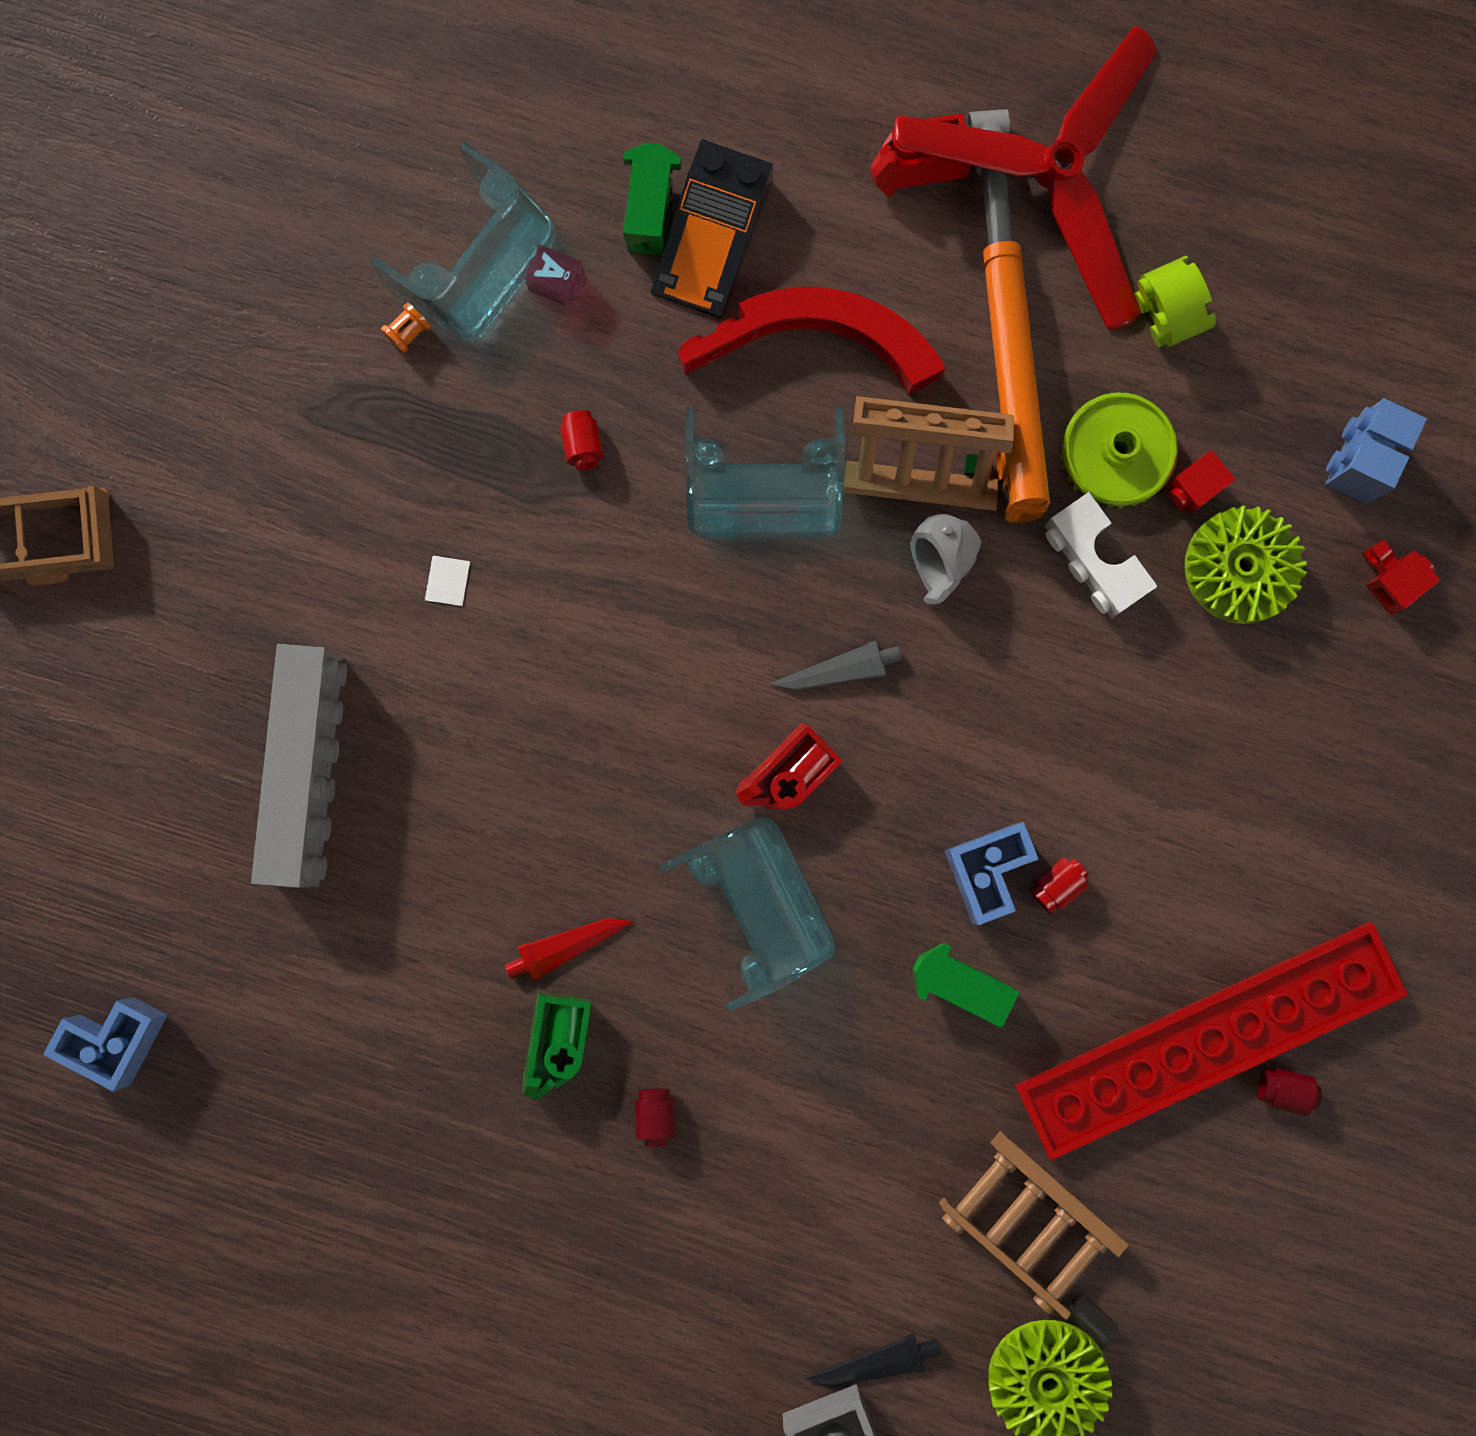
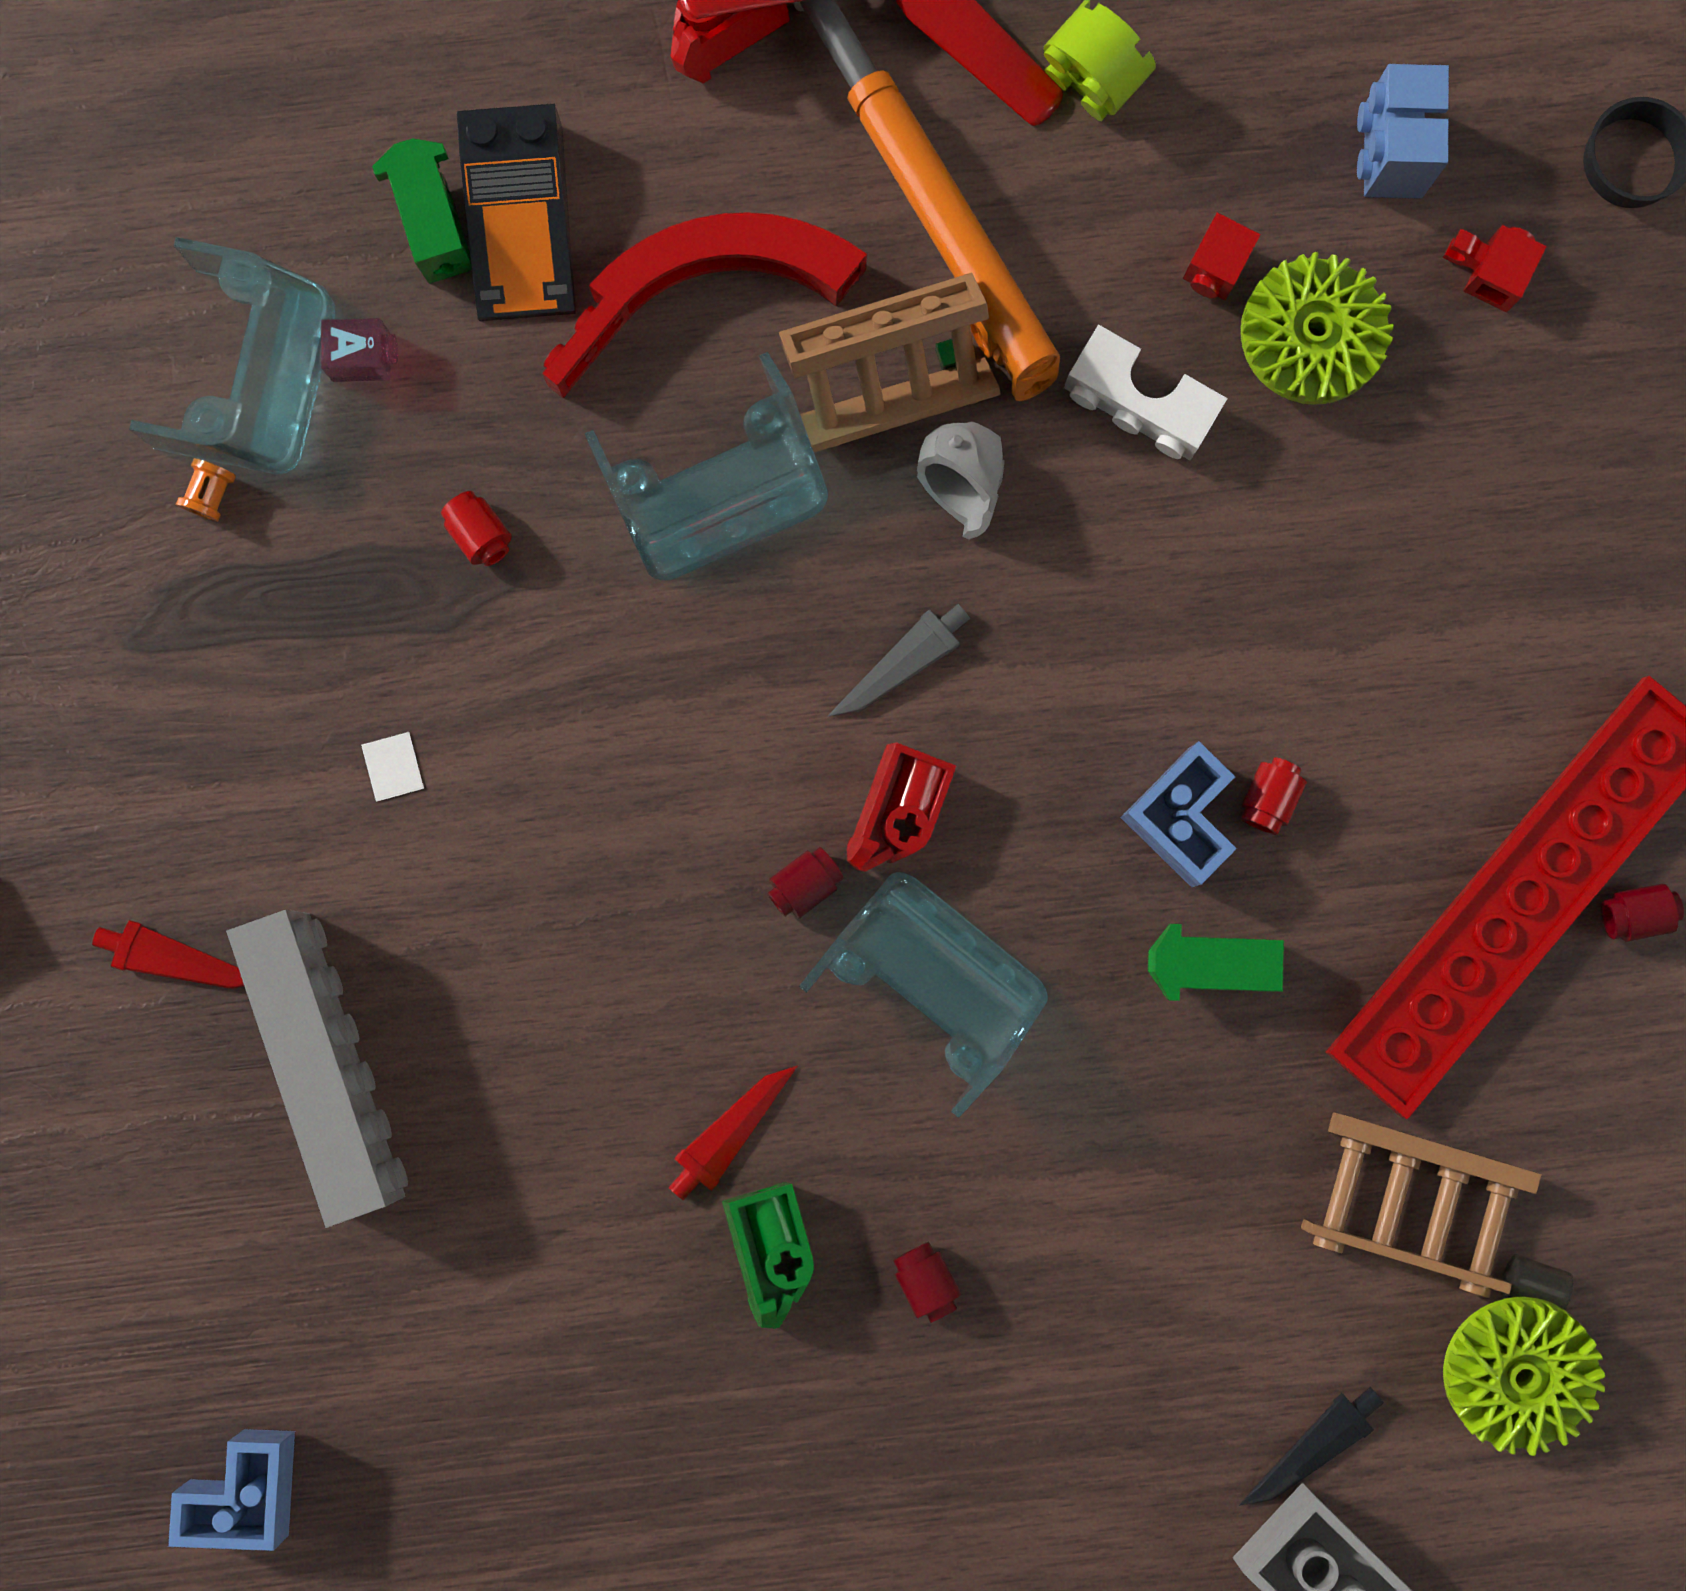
camera: 30 degrees left, 0 degrees up
(224, 637) = (156, 954): none -> red bar
(698, 794) = (804, 883): none -> dark red brick
(1103, 471) = (1104, 292): lime wheel -> none

